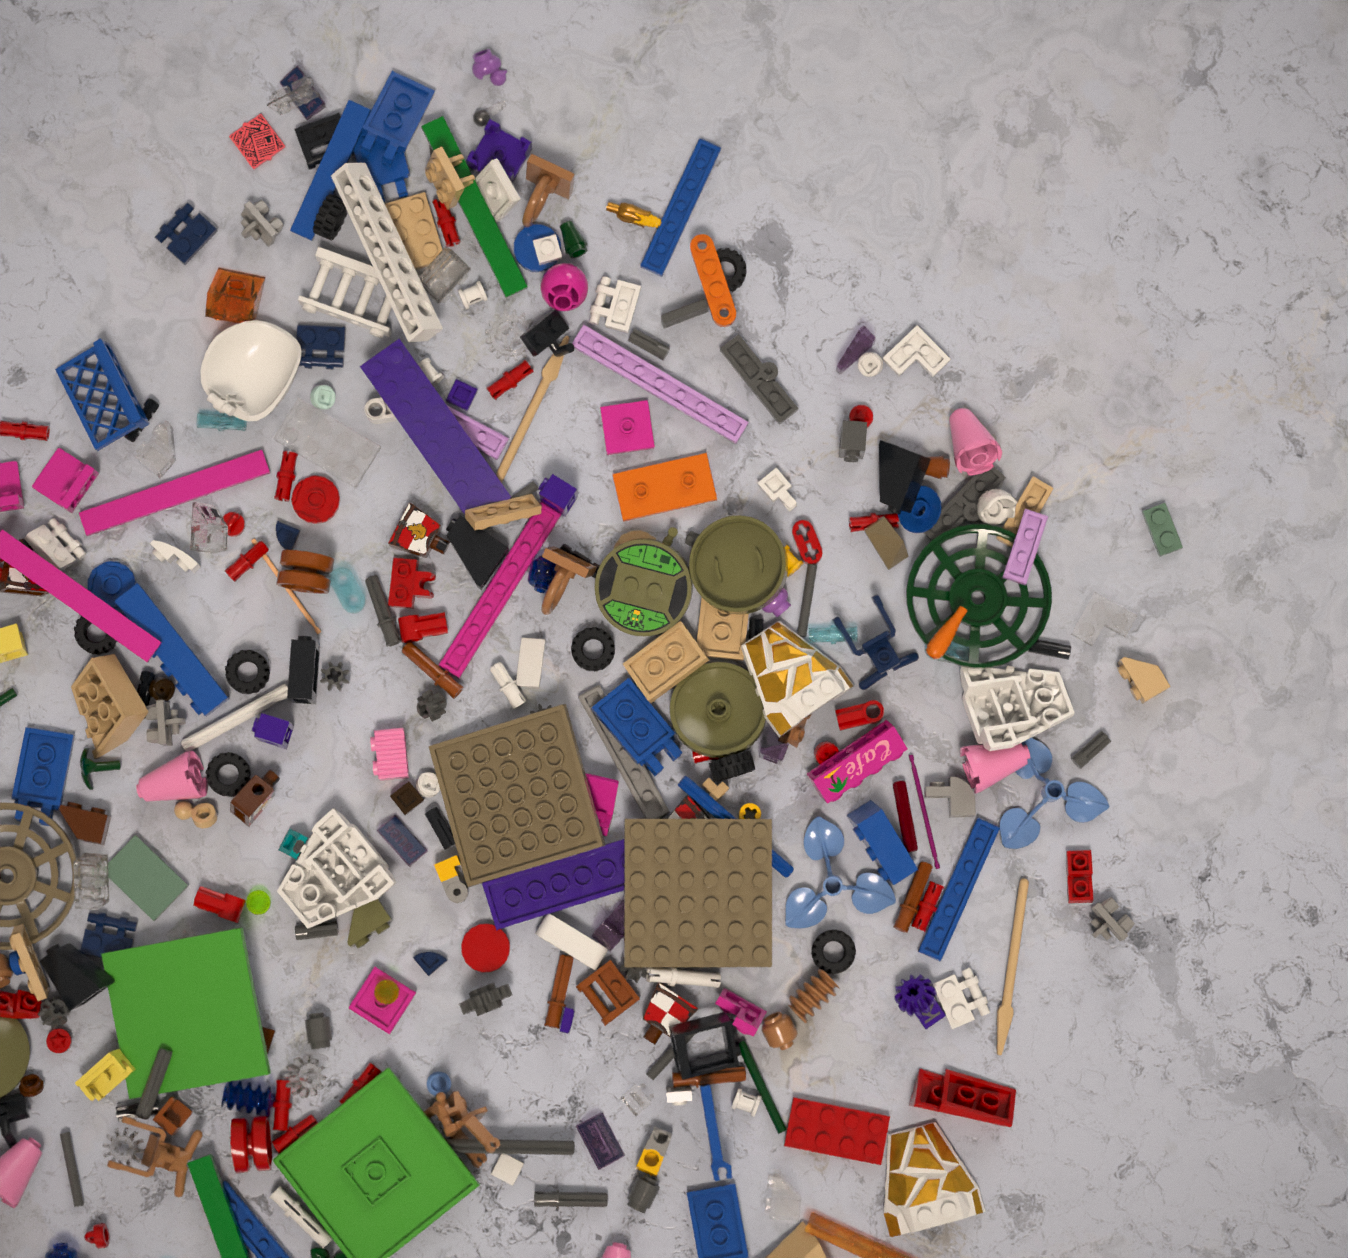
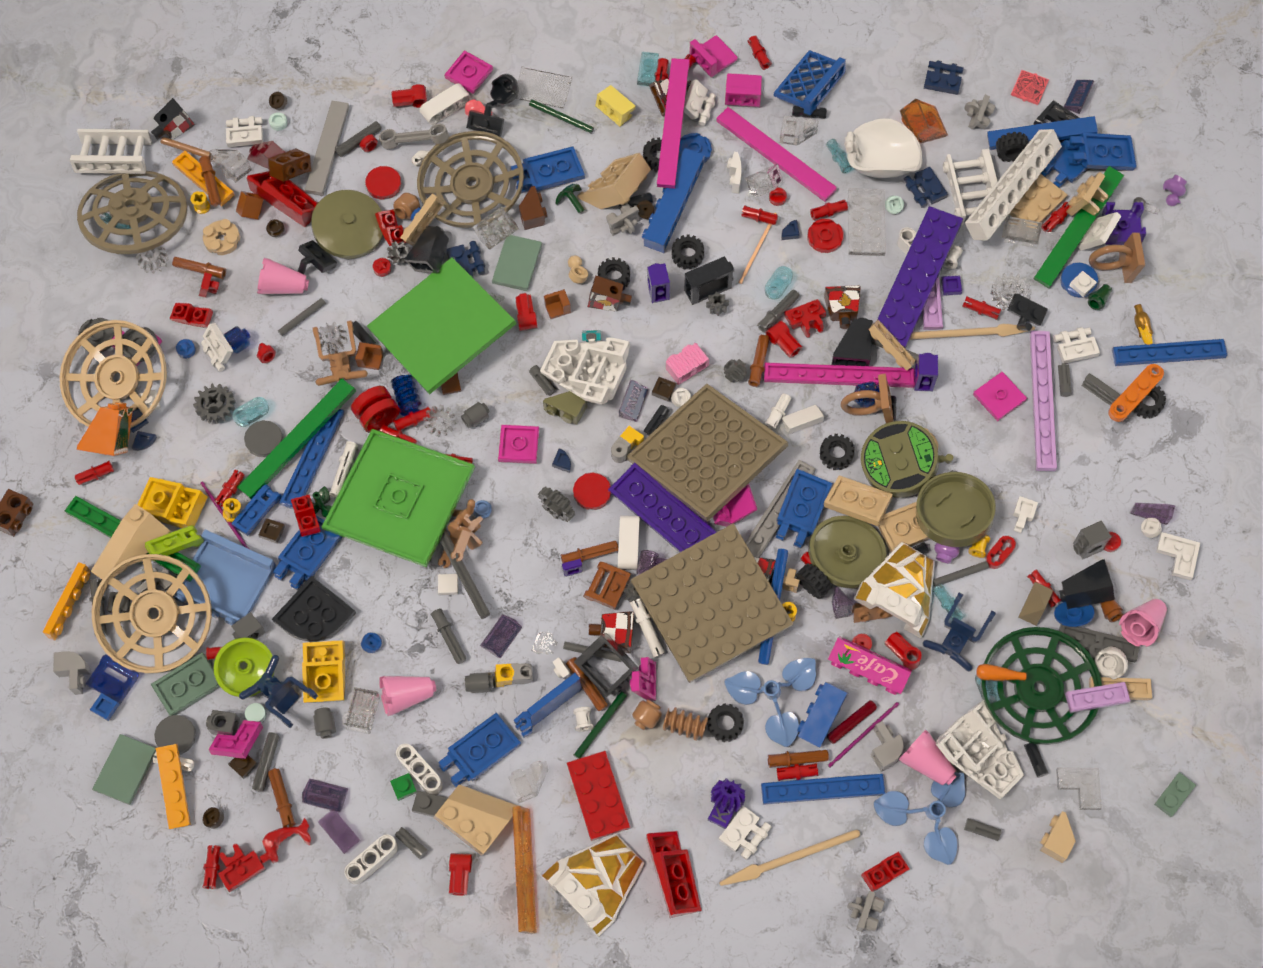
camera: 65 degrees right, 15 degrees down
(31, 1085) = (343, 264): reddish brown plate -> none
(105, 1075) = (374, 301): light yellow hinge -> none
(154, 1083) = (384, 330): dark grey axle -> none
(174, 780) = (591, 244): bright pink cone -> none
(229, 861) = (557, 304): none -> dark orange panel
(235, 718) = (647, 258): white axle -> none
(258, 902) = (540, 336): clear neon green plate -> none
(284, 100) = (1072, 88): clear hinge -> none
(305, 571) = (774, 247): dark orange wheel -> none
(386, 992) = (525, 440): clear neon green plate -> none
(472, 295) = (1021, 256): white bush -> none
(564, 287) = (1065, 304): dark pink brick -> none
(664, 487) = (976, 440): orange plate -> none
(759, 379) = (1090, 461): dark grey hinge -> none

